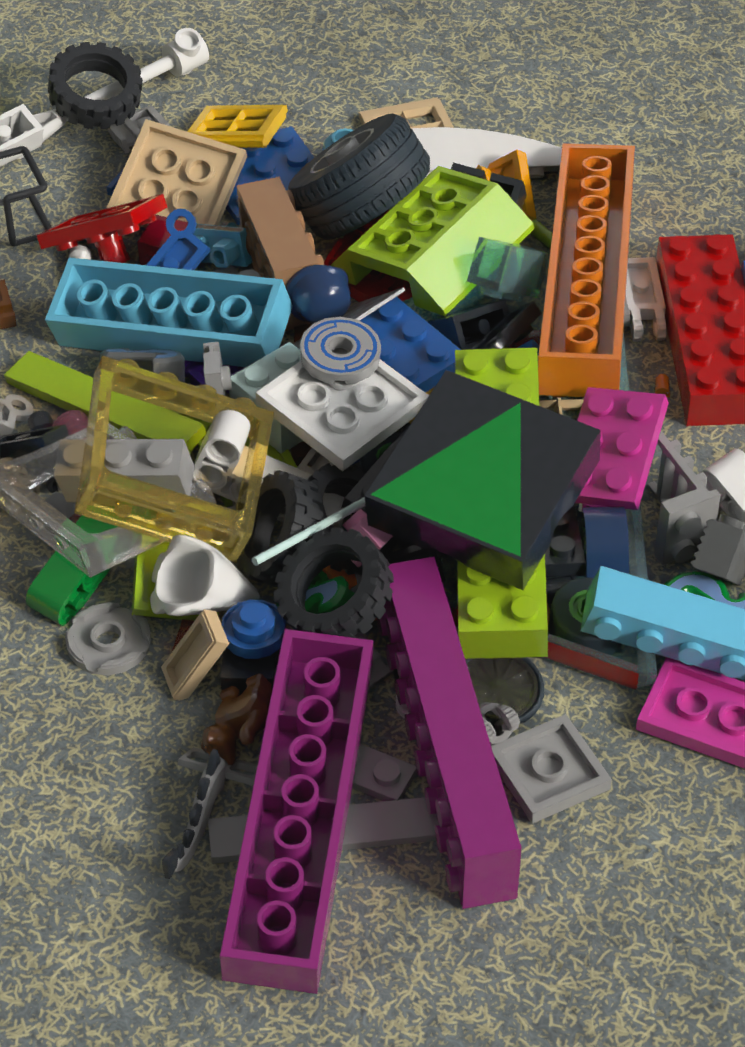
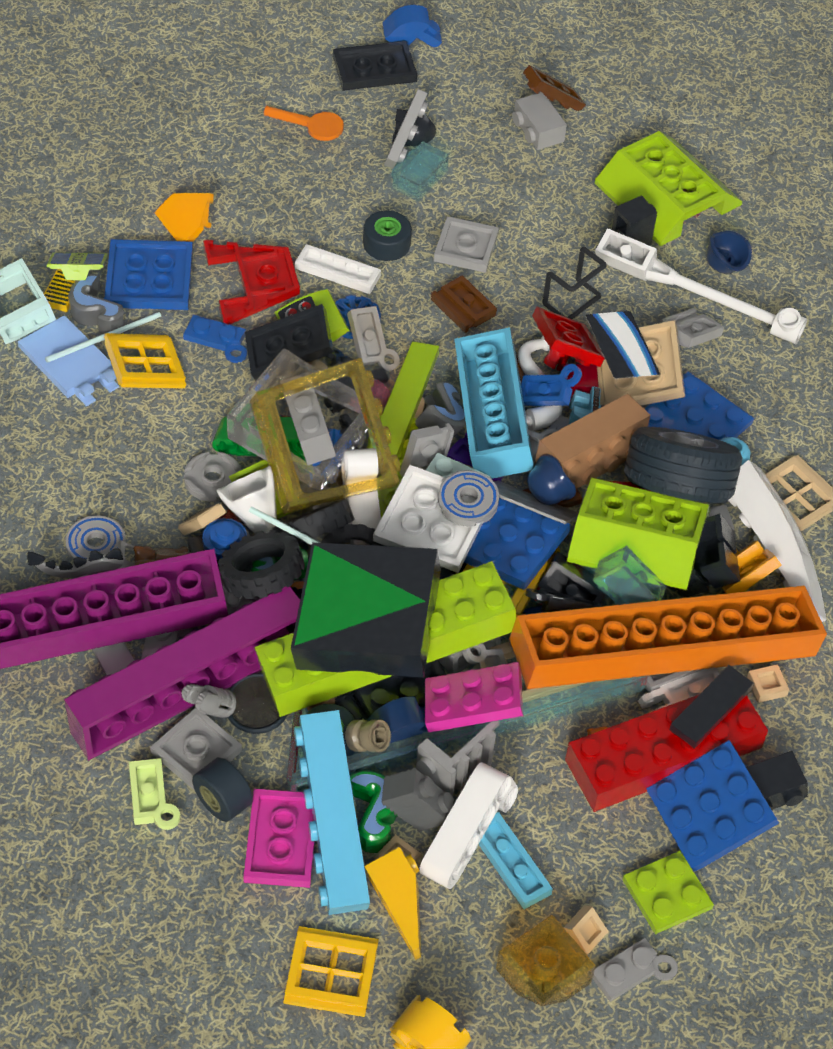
camera: 65 degrees right, 5 degrees up
(36, 63) = (728, 252): none -> dark blue helmet
(100, 59) = (710, 258): black tyre -> none
(146, 776) = (89, 528): none -> light grey tile
(149, 175) = (622, 344): none -> sticker
(240, 124) = (754, 402): yellow piece -> none
(602, 837) = (149, 794): none -> yellowish green hinge
(626, 559) = (367, 735): none -> dark tan wheel
(635, 746) = (222, 789): none -> black wheel
(651, 226) = (768, 683): none -> tan plate
(696, 259) = (711, 706): none -> black tile

